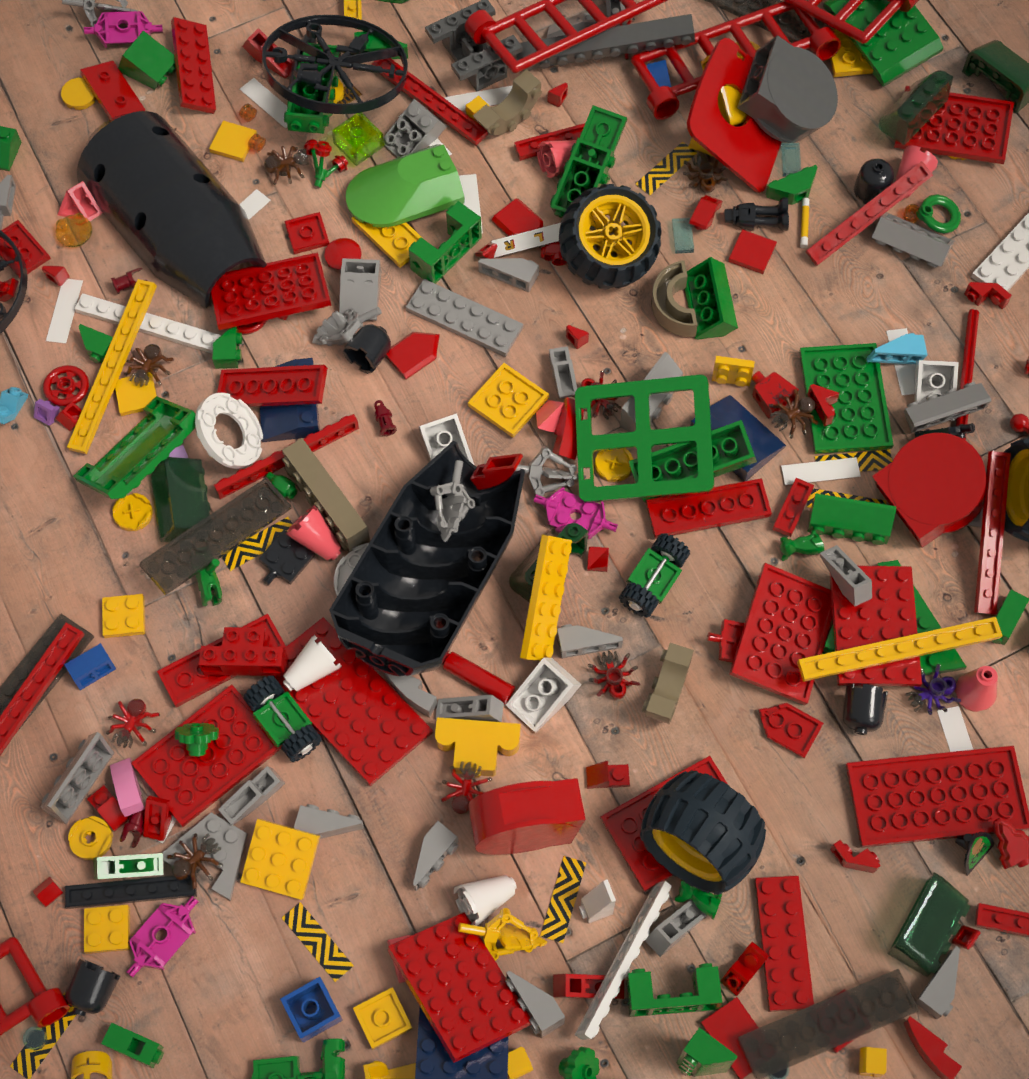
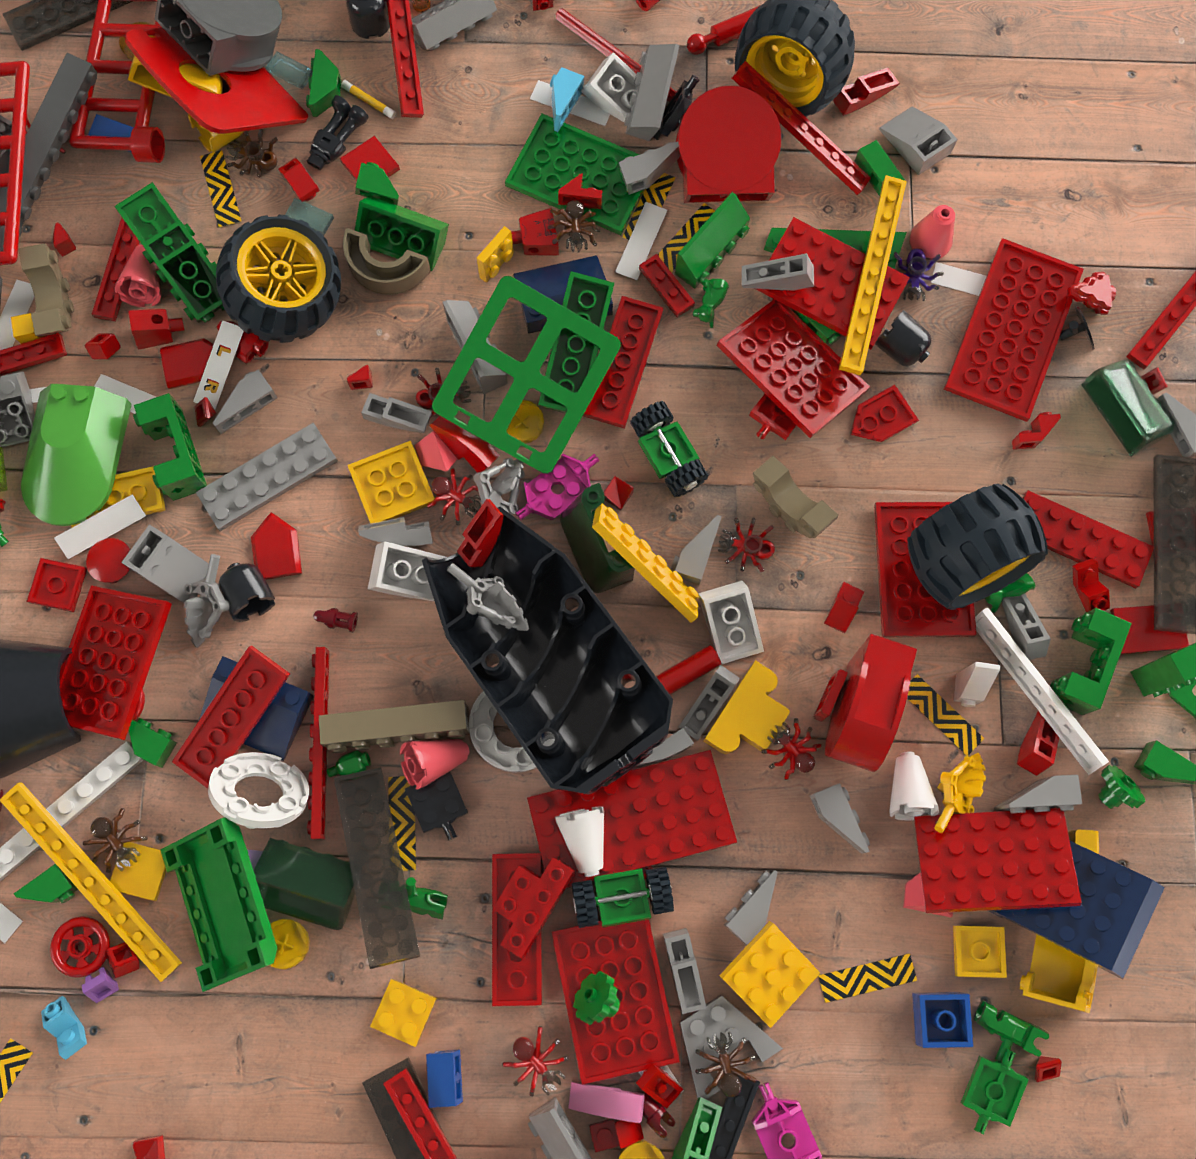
camera: 65 degrees left, 10 degrees up
(363, 234) = (100, 526): none -> white sticker
(472, 422) = (397, 532): none -> light grey slope
(496, 162) = (102, 346): none -> red slope
(524, 443) = (453, 496): none -> animal
(527, 183) = (153, 327): none -> red torso
(735, 260) = (375, 183): none -> green slope
(876, 437) = (646, 168): none -> light grey slope

